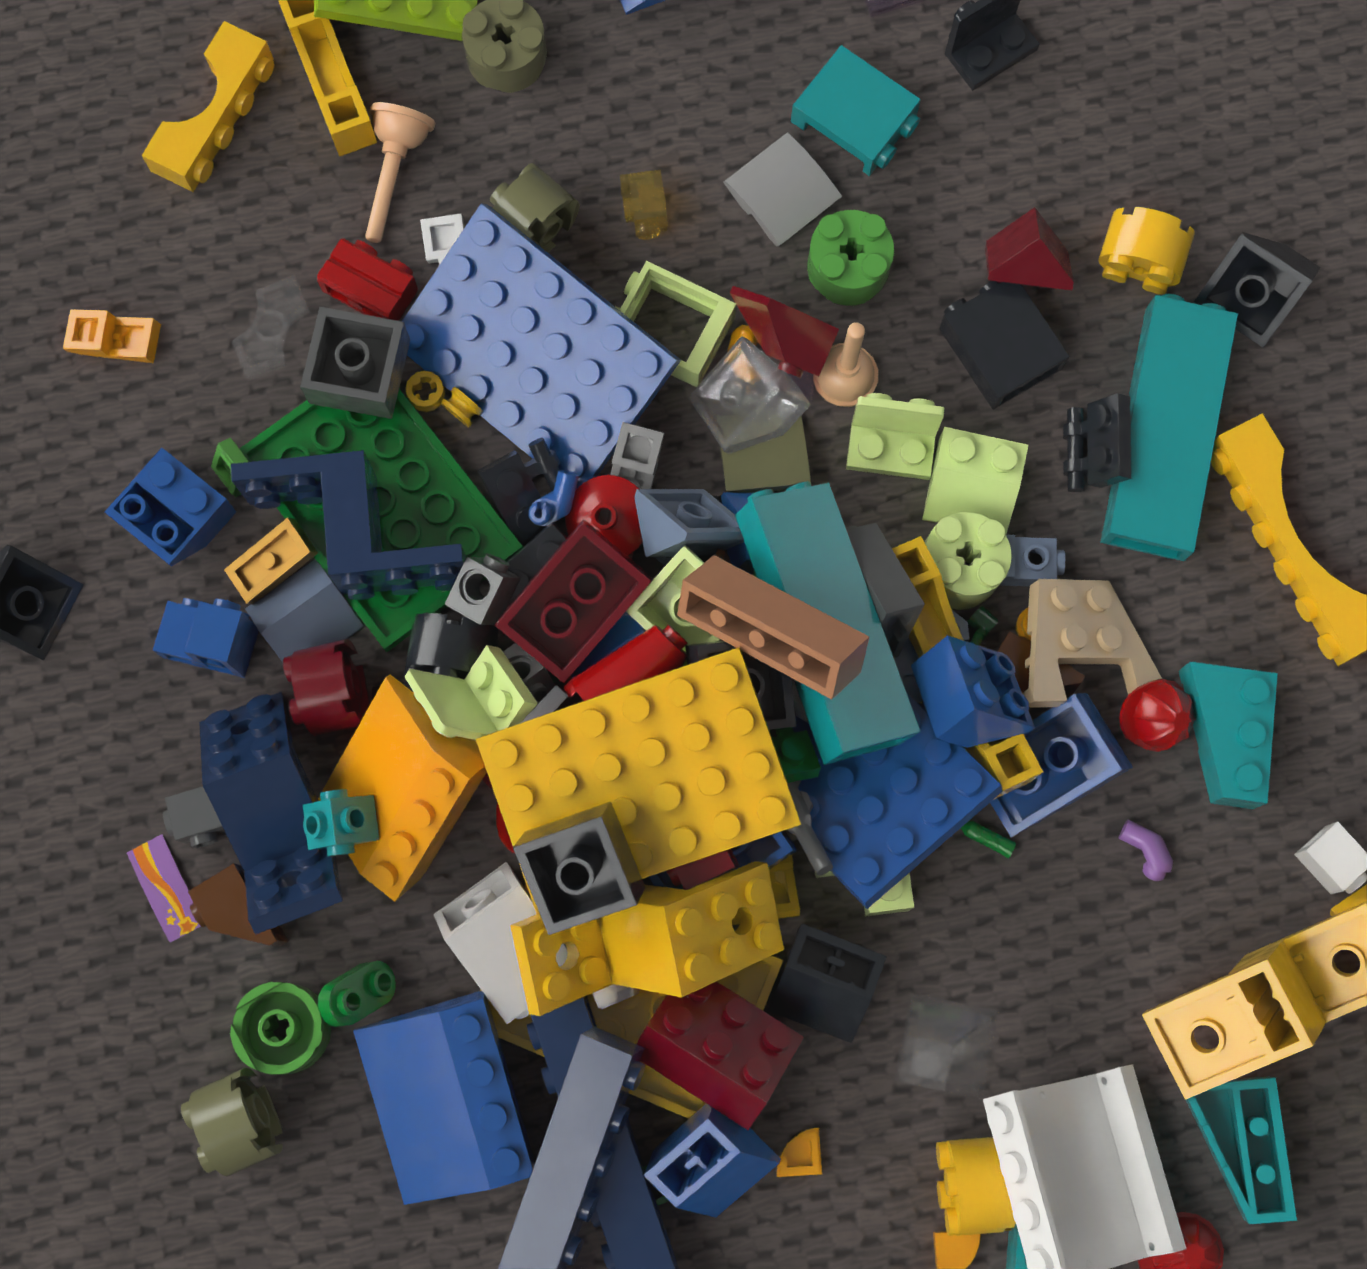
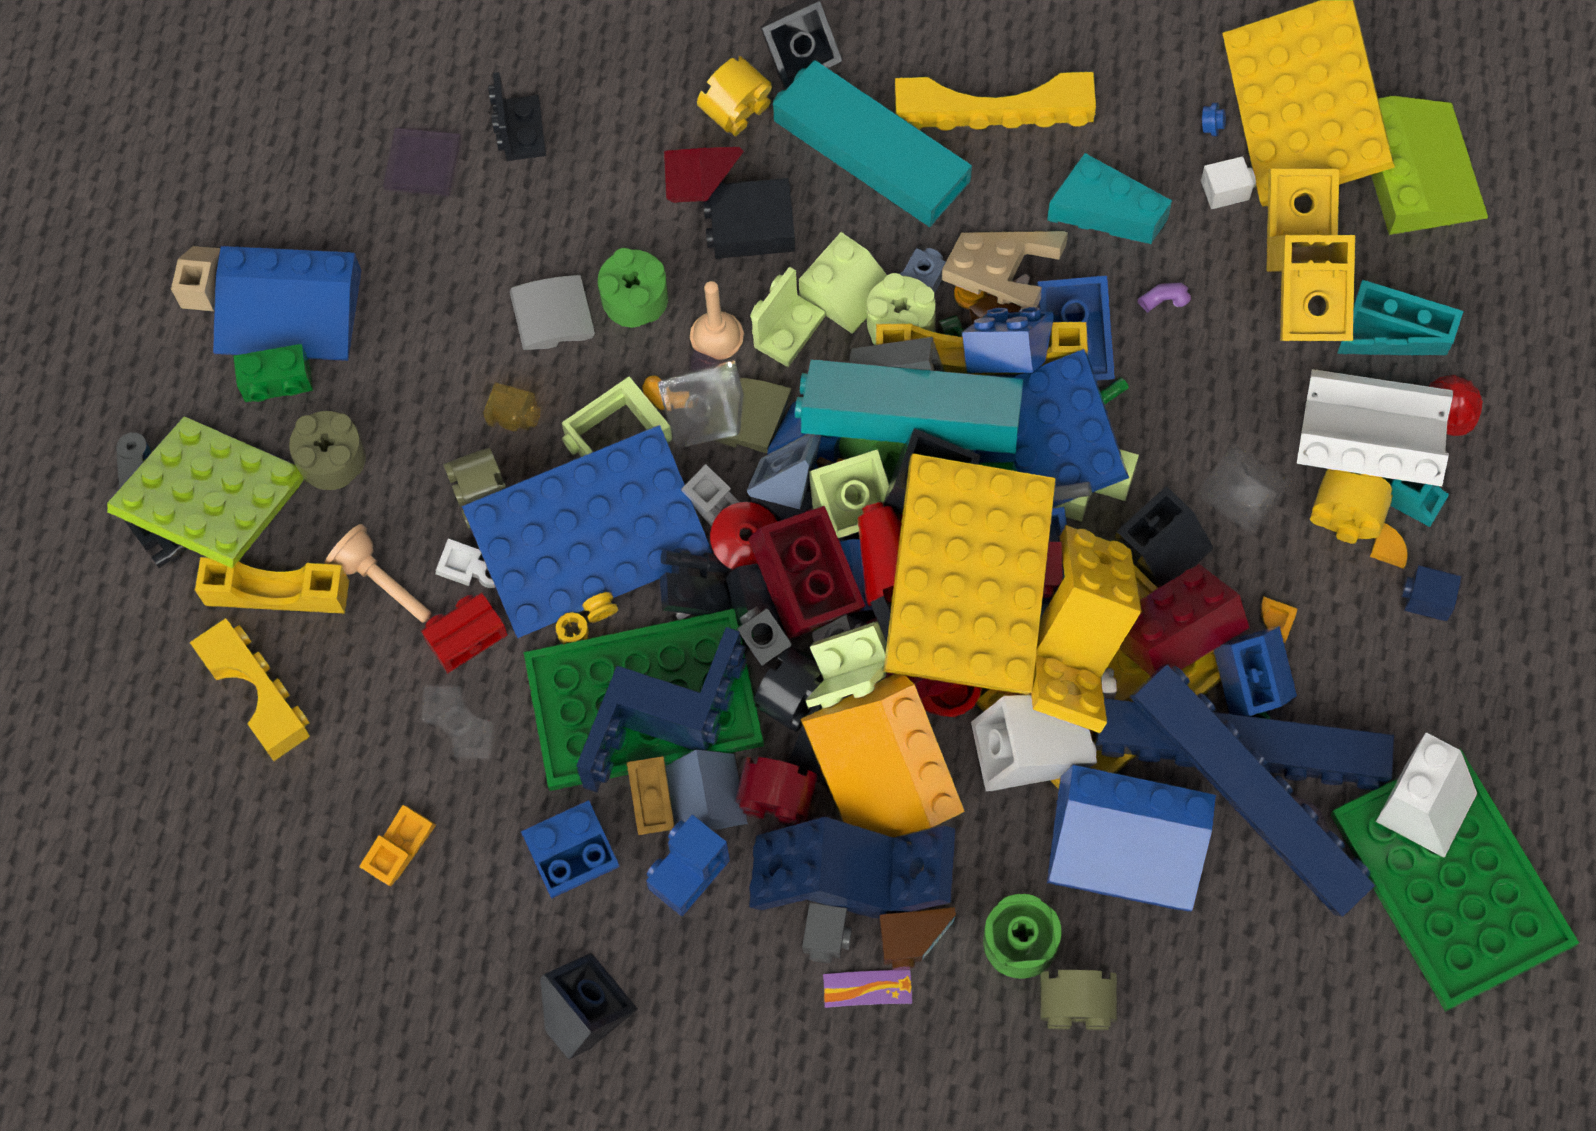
camera: 60 degrees left, 10 degrees down
(225, 455) = (559, 793): bright green tile -> none
(340, 822) = (891, 812): teal brick -> none
(355, 362) = (532, 656): dark grey brick -> none
(364, 987) = (1021, 868): green plate -> none
(556, 503) = (717, 564): blue arm -> none
(579, 868) = (1019, 630): brick -> none
(773, 626) = (907, 427): nougat brick -> none
(786, 333) = (671, 350): dark red slope -> none
(858, 109) = (520, 232): teal panel -> none
(1108, 443) = (864, 182): black plate -> none
(1157, 715) = (1076, 243): red piece -> none

